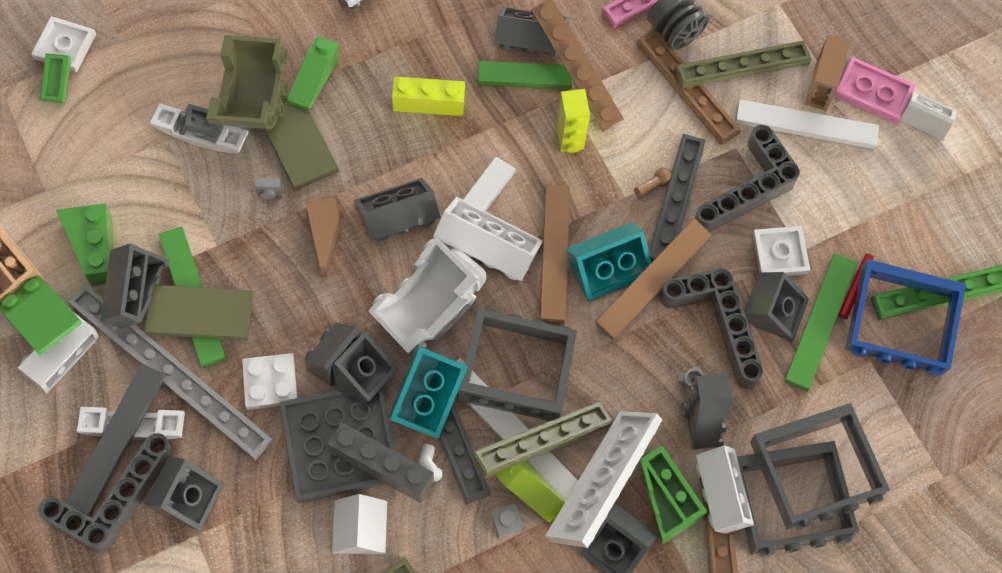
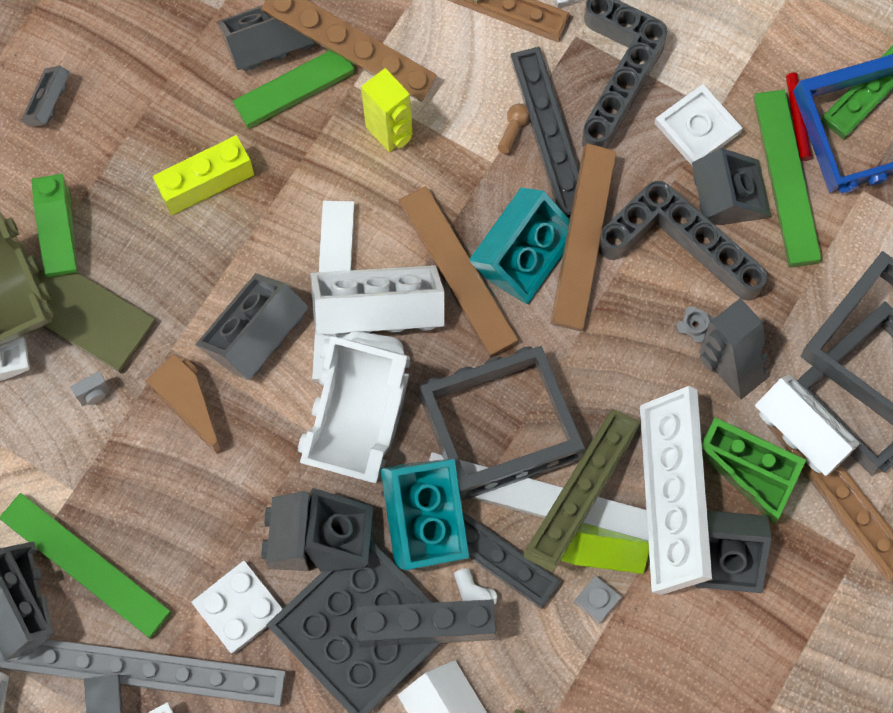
camera: 25 degrees left, 5 degrees up
(199, 312) = (108, 579): olive tile -> none

